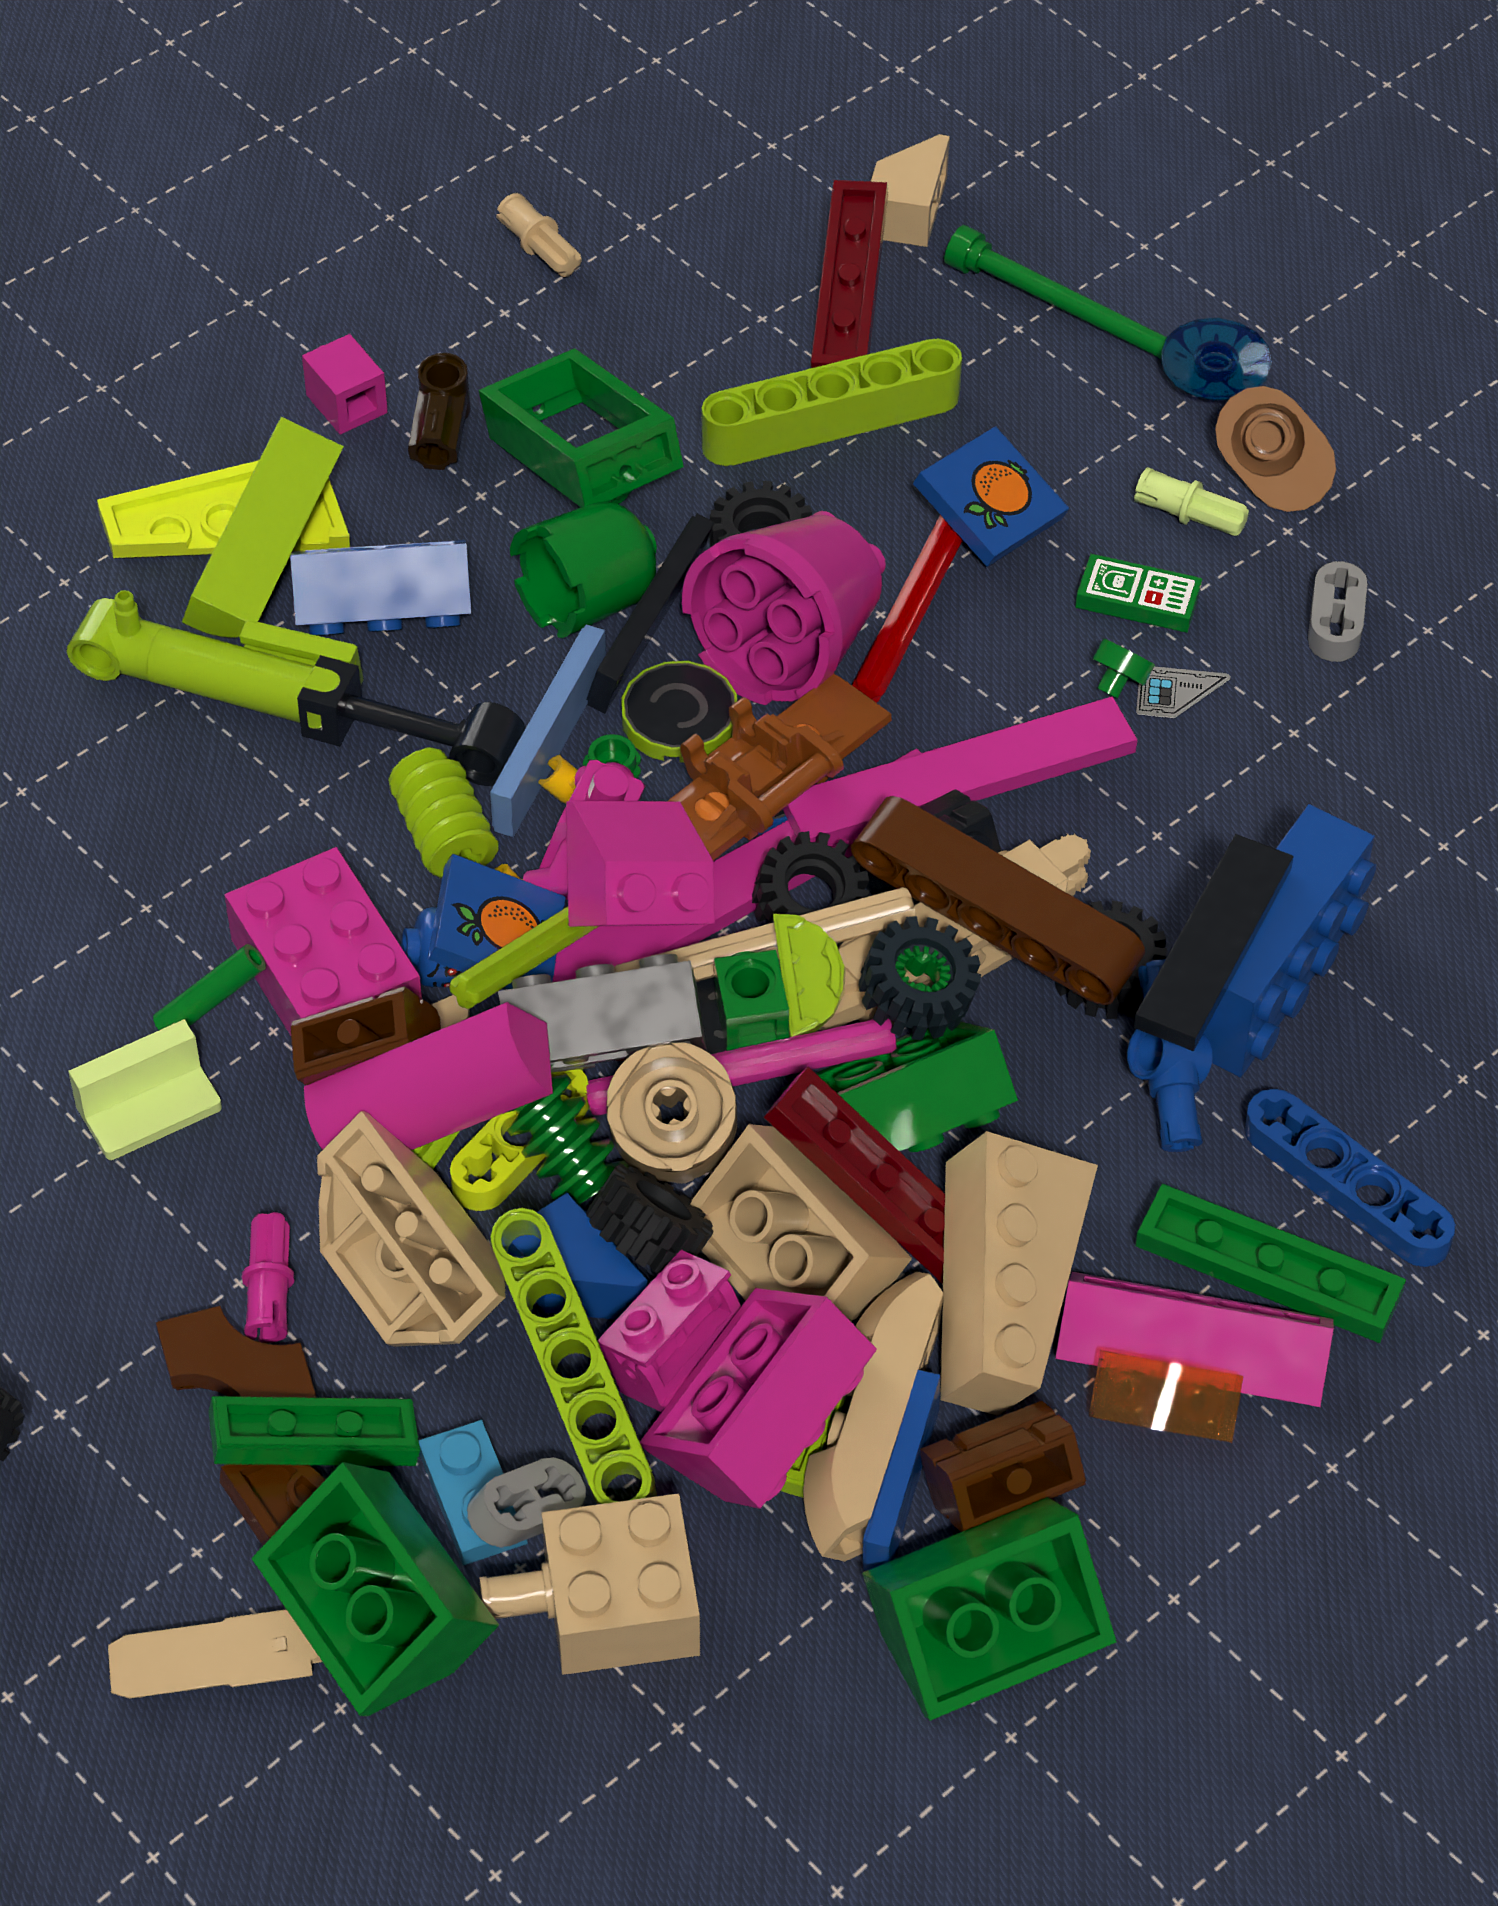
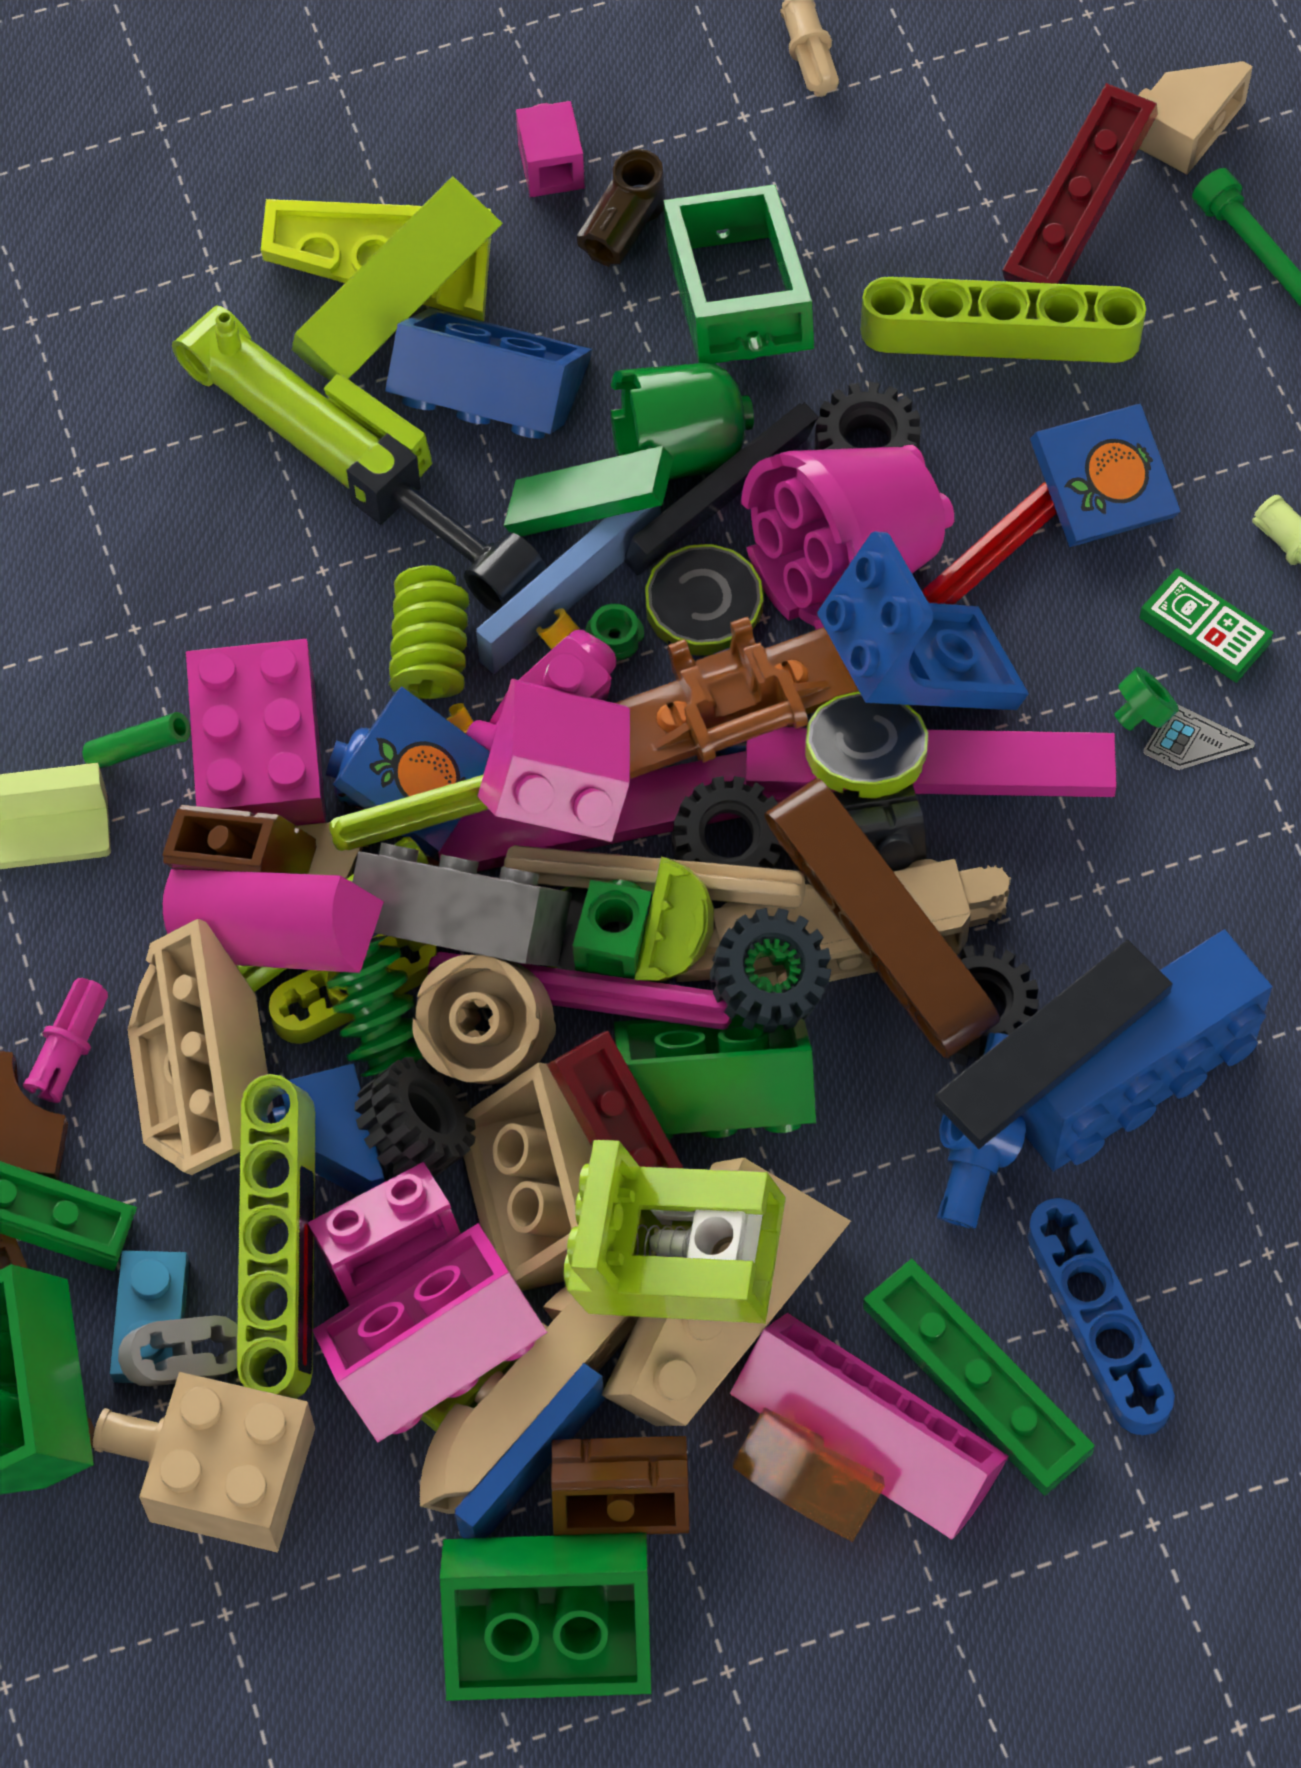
camera: 25 degrees right, 10 degrees up
(537, 645) = (589, 492): none -> tile
(886, 658) = (911, 648): none -> blue bracket
(905, 764) = (866, 745): none -> black tile
(964, 1192) = (618, 1233): none -> lime brick

